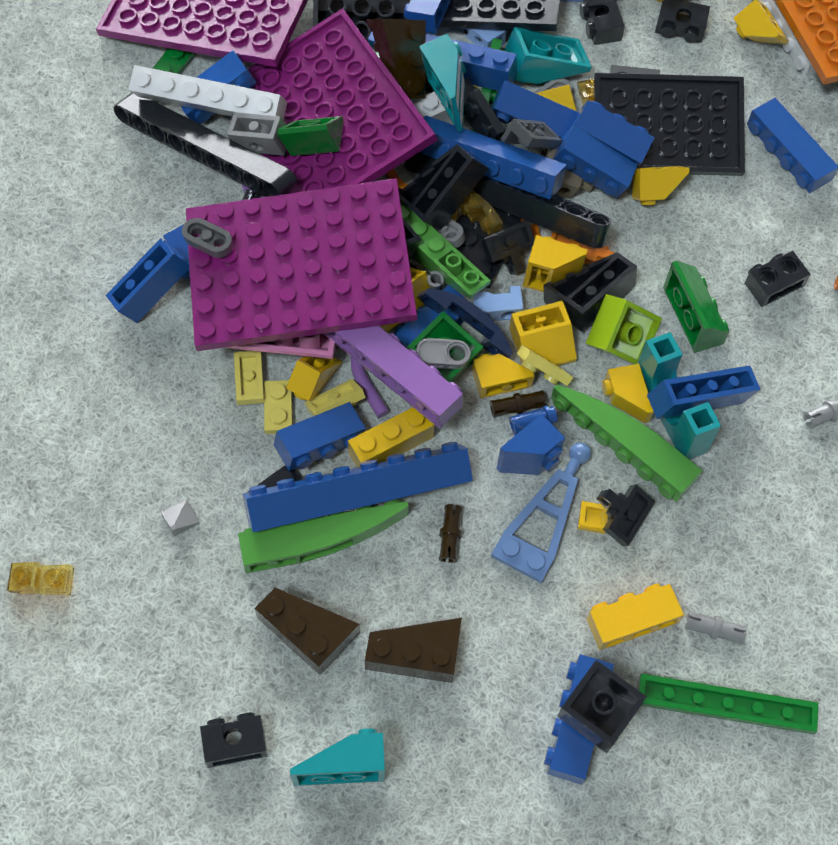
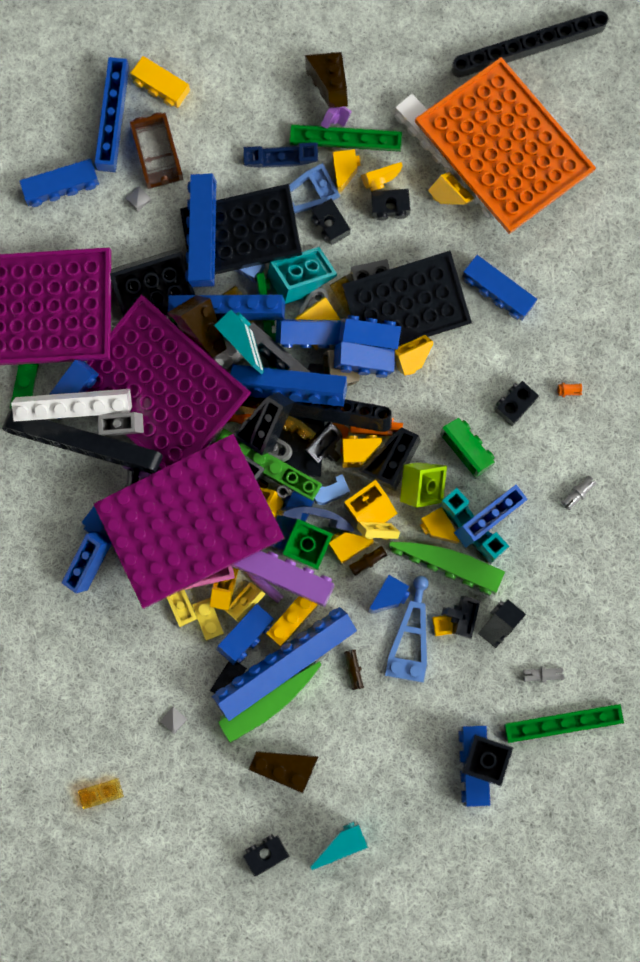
camera: 15 degrees left, 15 degrees up
(210, 237) = (121, 527): dark grey plate -> none
(312, 135) = (159, 411): green slope -> none
(416, 650) = (360, 758): dark brown wedge -> none
(436, 352) = (304, 552): light grey piece -> none
(520, 421) = (382, 570): blue plant -> none
(531, 134) = (315, 358): dark grey bracket -> none
(634, 615) = (489, 686): yellow brick -> none
(680, 529) = (502, 623): none -> black wedge

